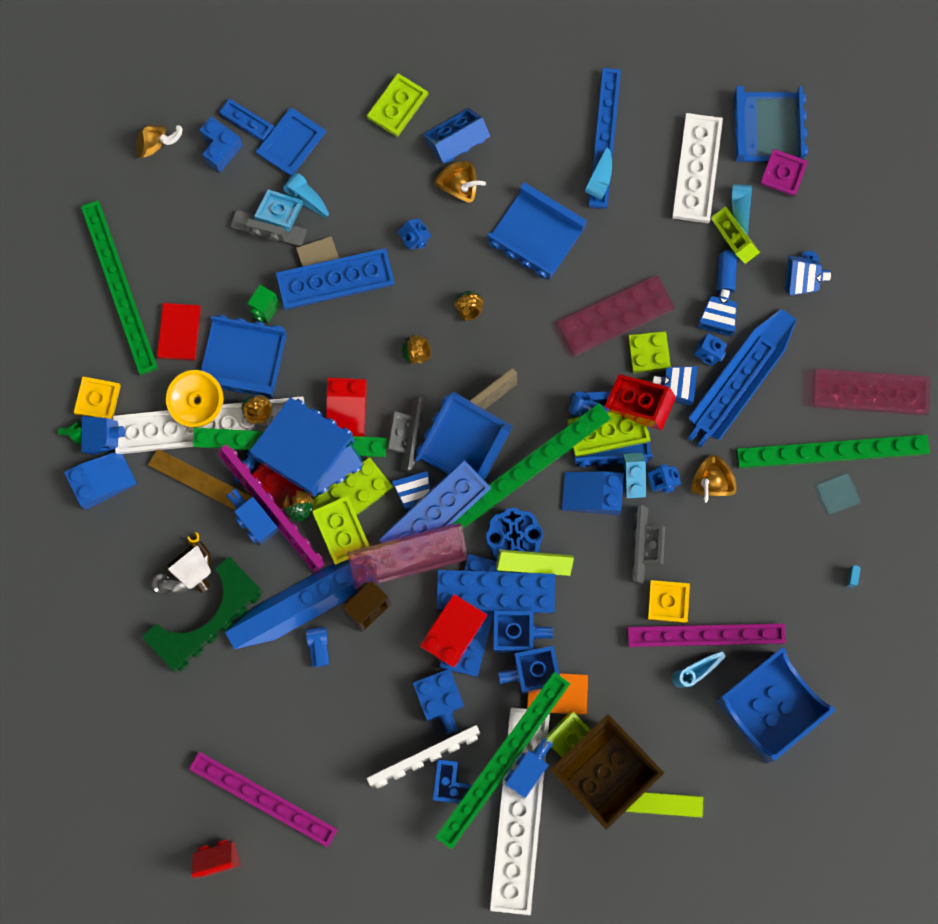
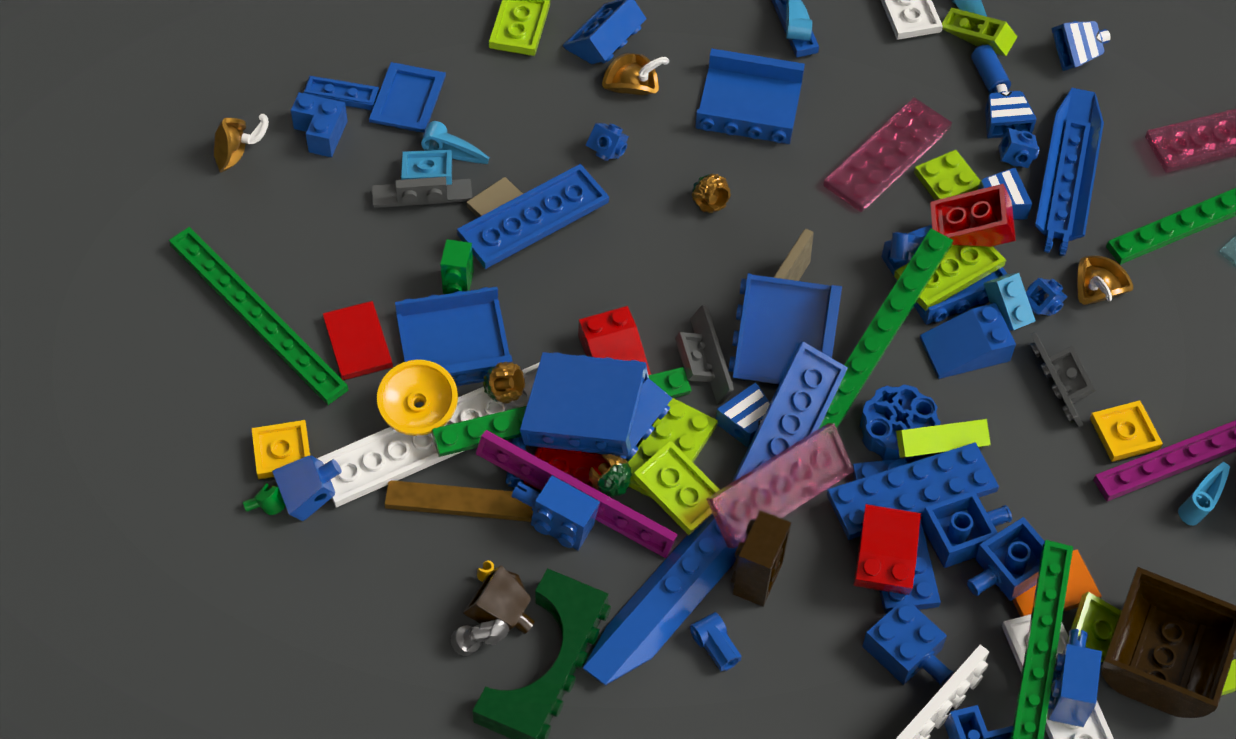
camera: 25 degrees left, 20 degrees down
(100, 479) = (325, 544): blue slope -> none
(416, 349) = (671, 259): pearl gold piece -> none

